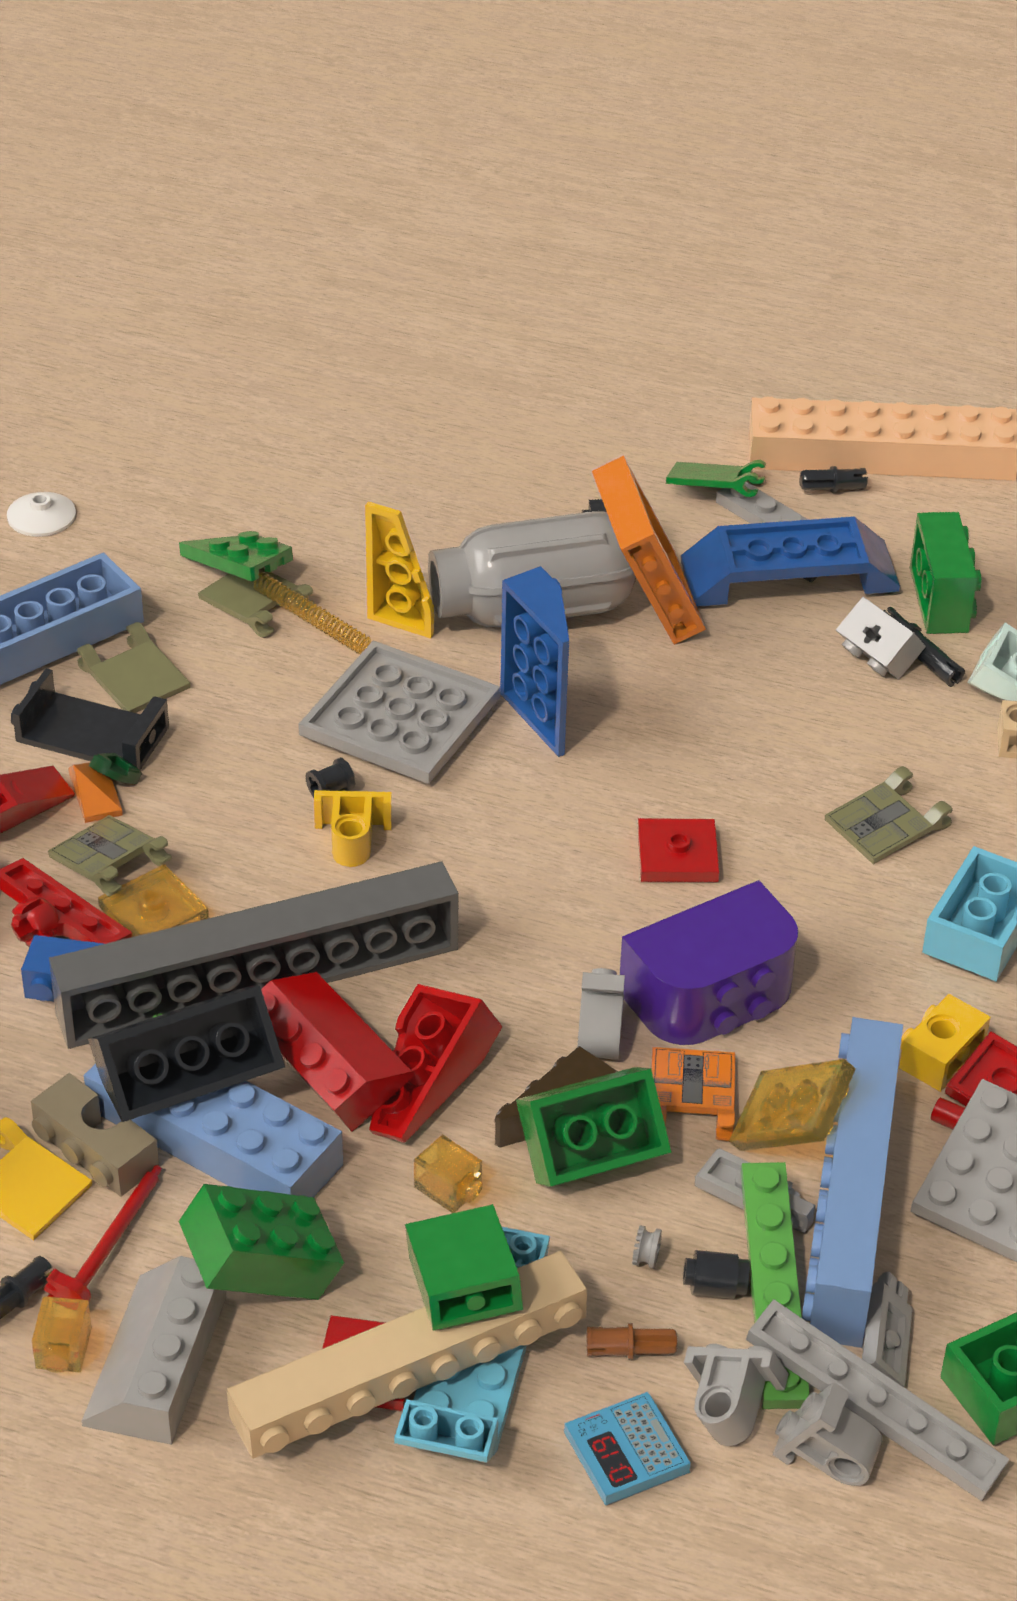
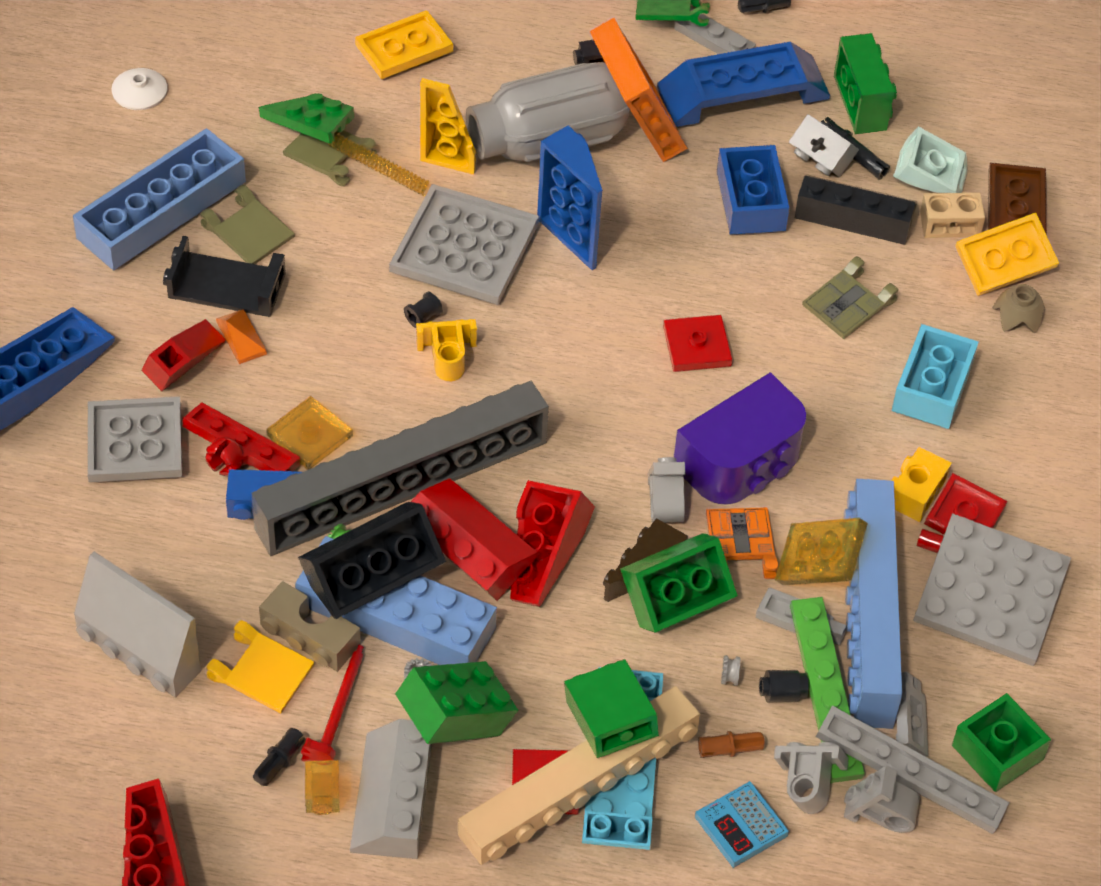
camera: 10 degrees left, 10 degrees up
(104, 848) = (262, 386): olive flag -> none
(116, 768) = (255, 316): dark green tile -> none
(389, 483) = (404, 44): none -> yellow plate
(448, 1174) = (577, 629): clear yellow brick -> none
(779, 679) = (752, 189): none -> blue brick
(911, 714) = (855, 209): none -> black slope

